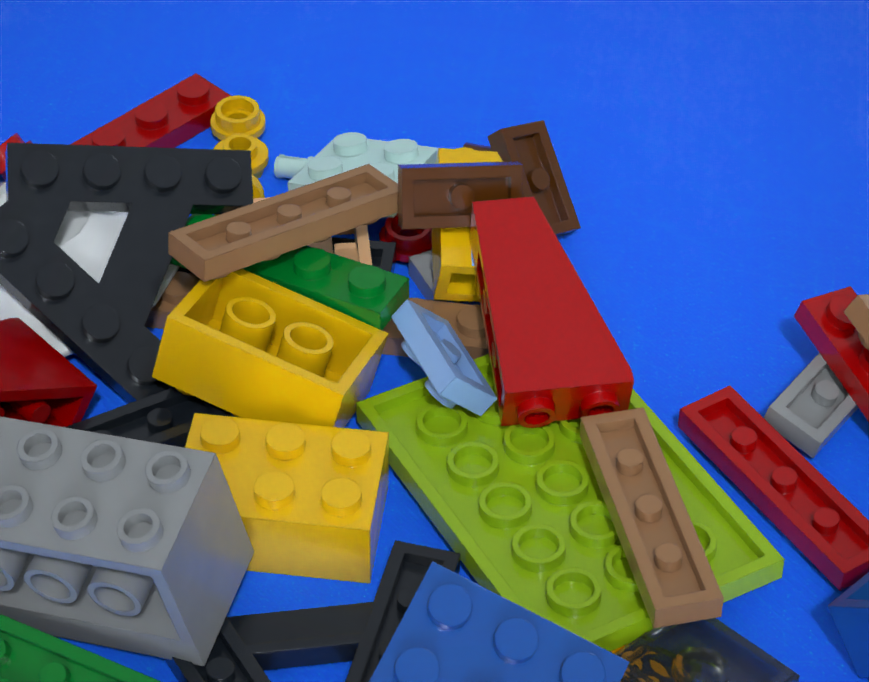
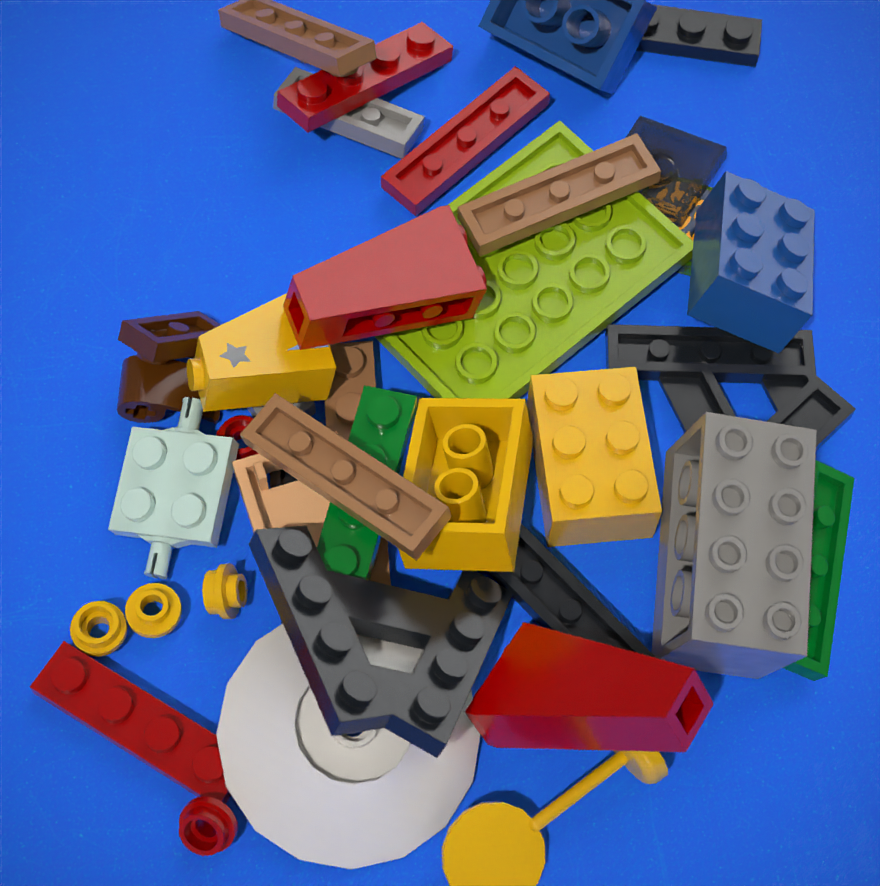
camera: 105 degrees left, 20 degrees up
(443, 357) = (438, 351): light blue plate -> none
(445, 191) = (285, 355): reddish brown plate -> none

